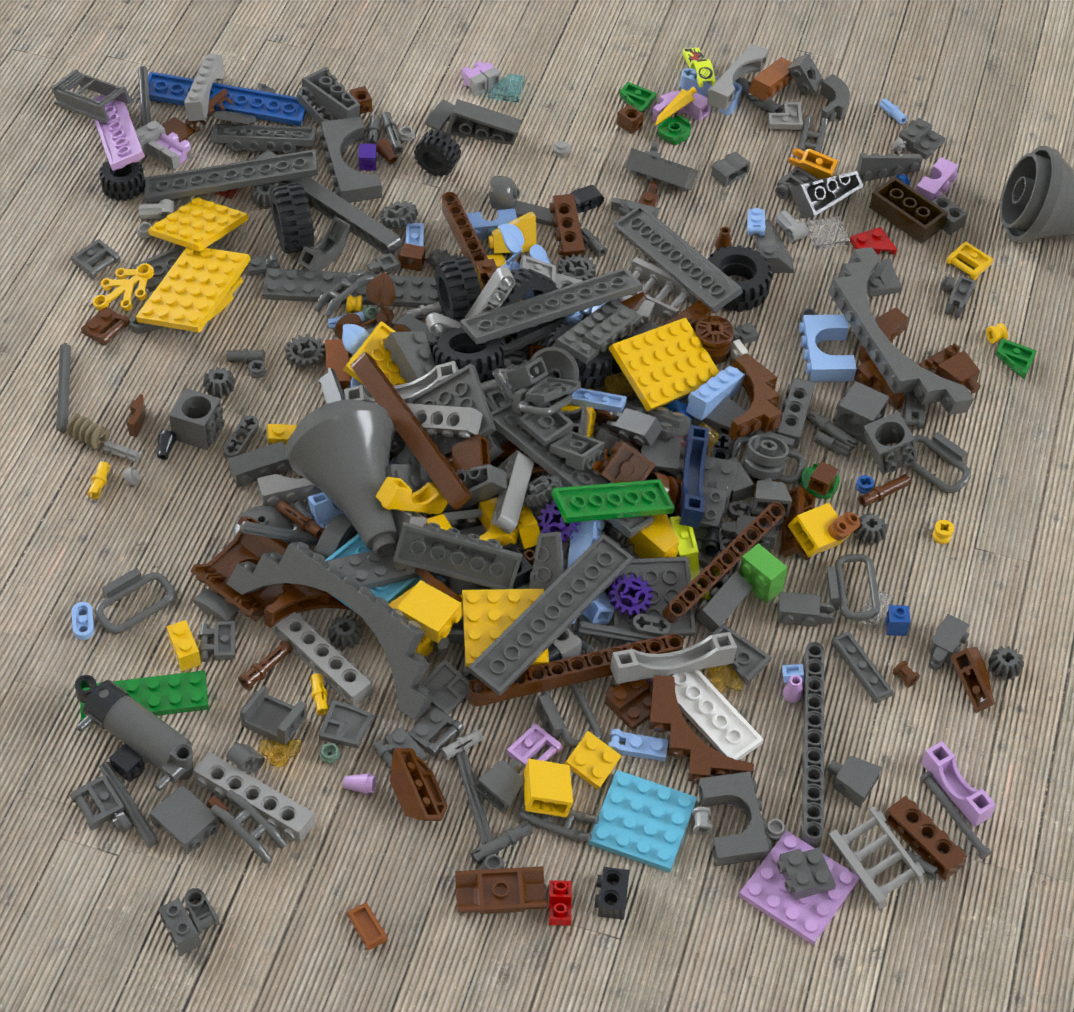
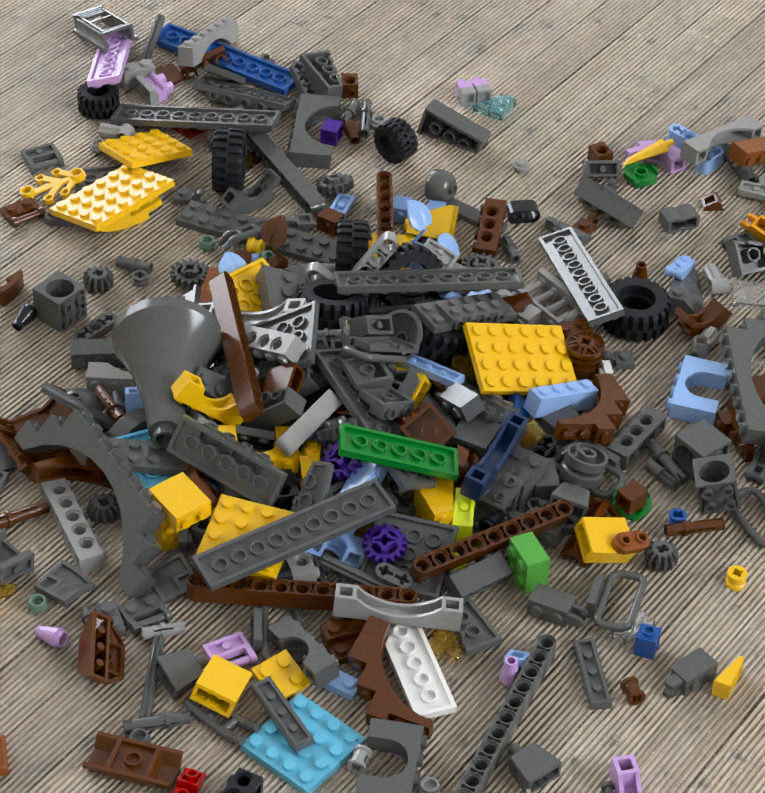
camera: 20 degrees right, 10 degrees down
(305, 312) = (207, 243): none -> sand green plate
(319, 694) = (54, 552): yellow pin -> none
(440, 115) = (414, 114): dark grey slope -> none
(584, 715) = (319, 664): none -> dark grey arch
(615, 799) = (282, 714): none -> dark grey tile
(637, 96) = (618, 139): green wing -> none
(639, 134) = (601, 169): none -> dark grey brick
(703, 66) = (690, 124): neon yellow piece -> none
(750, 143) = (712, 202): none -> reddish brown slope
(783, 190) = (720, 248): dark grey bush -> none
(801, 272) = (713, 315): none -> reddish brown arch
(811, 294) = (704, 342): none -> light grey piece
(974, 677) = (701, 710): reddish brown slope -> none
(982, 637) = (726, 681): none -> yellow slope
(1006, 662) = (742, 709): dark grey gear -> none

